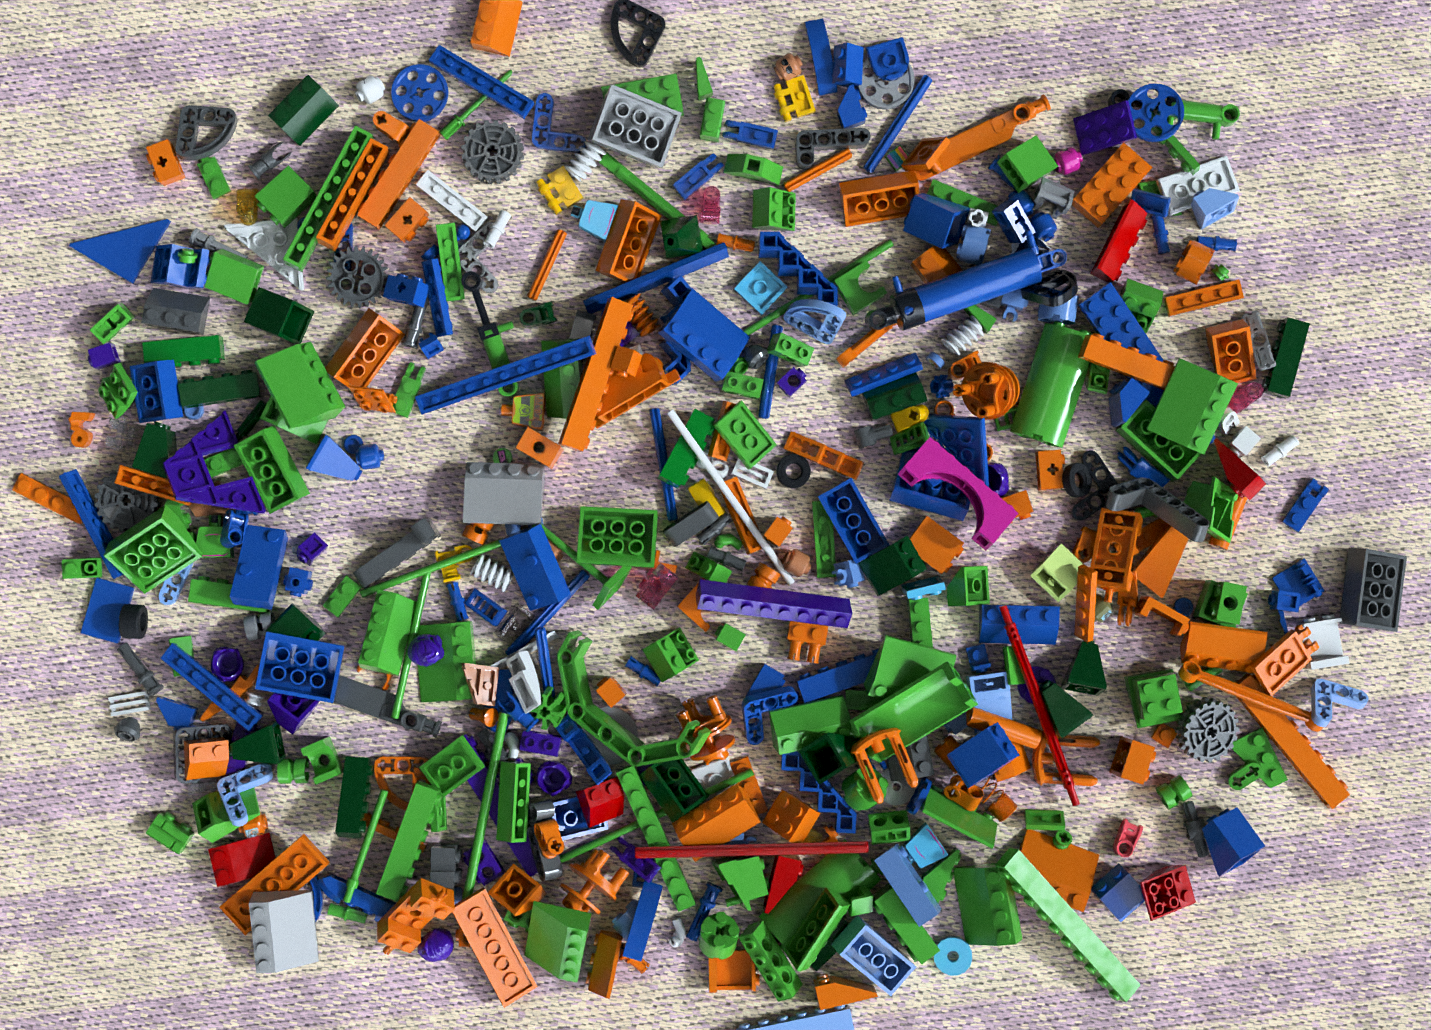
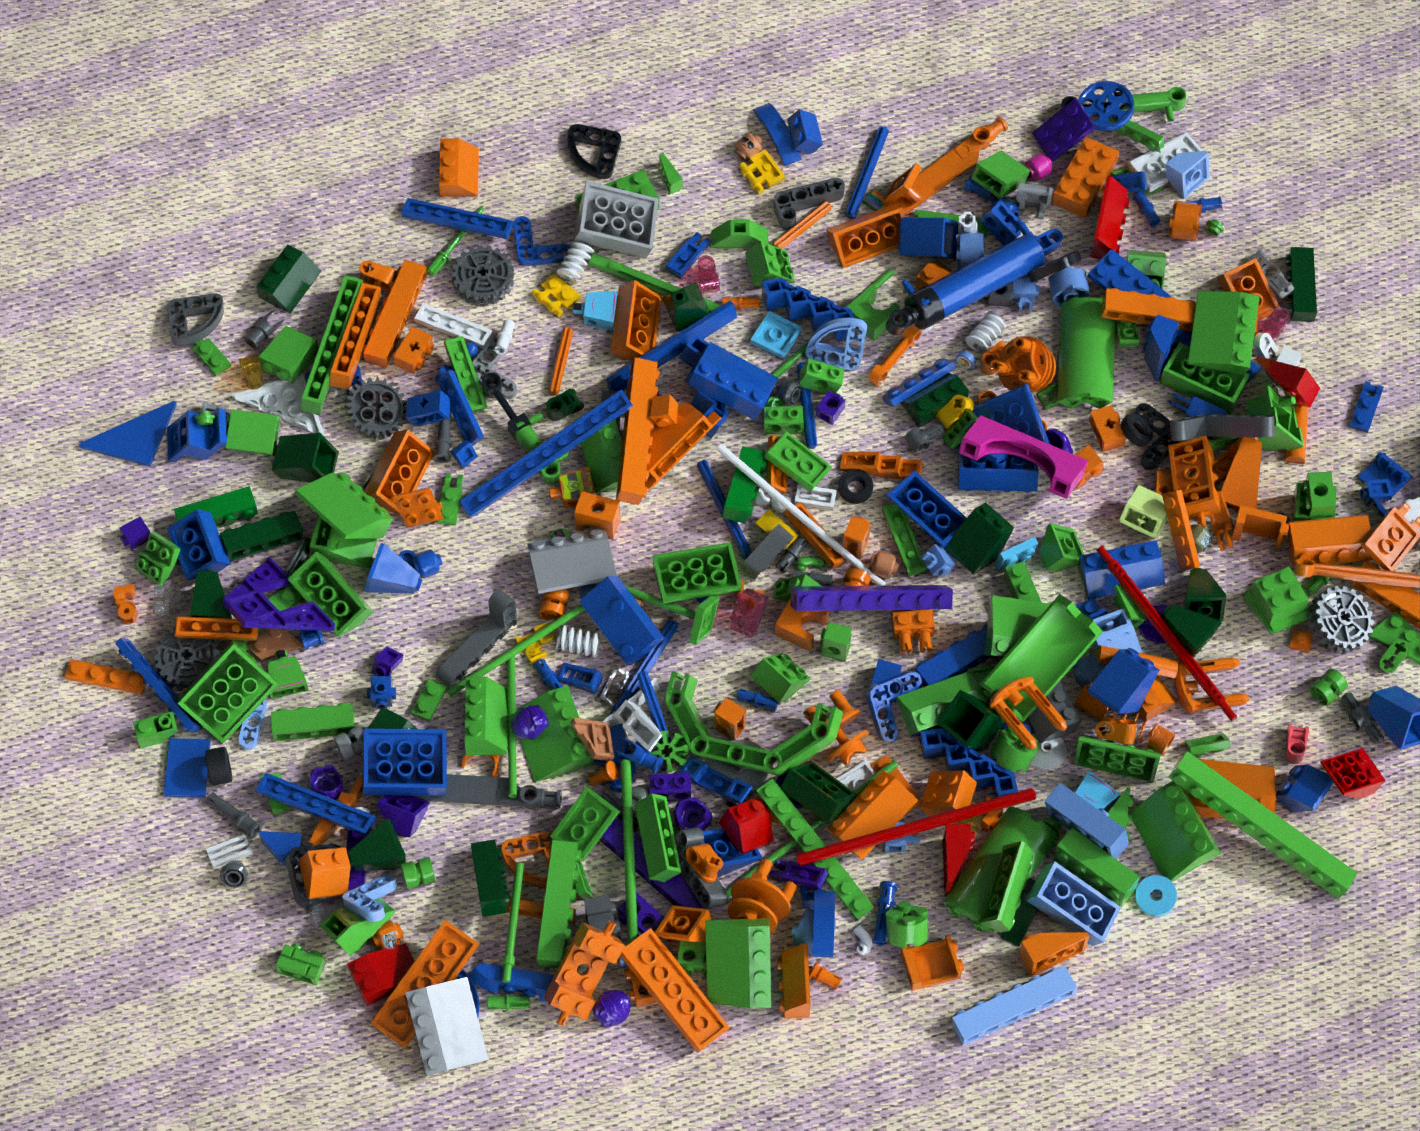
camera: 10 degrees left, 25 degrees down
(112, 323) = (139, 499): bright green brick -> none
(172, 170) = (161, 351): orange brick -> none
(176, 311) = (200, 480): dark grey slope -> none
(194, 413) = (238, 566): medium blue tile -> none
(236, 526) = (304, 654): blue piece -> none
(259, 567) = (339, 683): blue brick -> none
(314, 753) = (441, 842): bright green piece -> none
(369, 89) = (349, 248): white head -> none
(412, 87) = (394, 249): blue wedge -> none
(641, 316) = (668, 384): orange piece -> none
(712, 119) = (688, 203): bright green brick -> none
(744, 878) = (913, 862): bright green piece -> none
(752, 134) = (729, 209): blue hinge -> none
(770, 961) = (968, 937): bright green brick -> none
(850, 111) = (818, 167): blue slope -> none
(861, 904) = (1044, 854): bright green panel -> none
(881, 89) = (840, 145): light grey wedge -> none
(889, 59) = (842, 119): blue tile -> none
(889, 827) = (1047, 781): bright green brick -> none
(919, 796) = (1072, 748): blue tile -> none
(936, 545) = (1021, 514): orange brick -> none
(941, 386) = (978, 379): blue gear -> none
(984, 318) = (1005, 312): bright green slope -> none
(1043, 226) = (1034, 223): blue head -> none
(1067, 839) = (1231, 758): bright green bush -> none
(1133, 760) = (1275, 658): orange brick -> none
(1203, 298) = (1206, 252): orange plate -> none
(1280, 450) = (1325, 364): white pin -> none

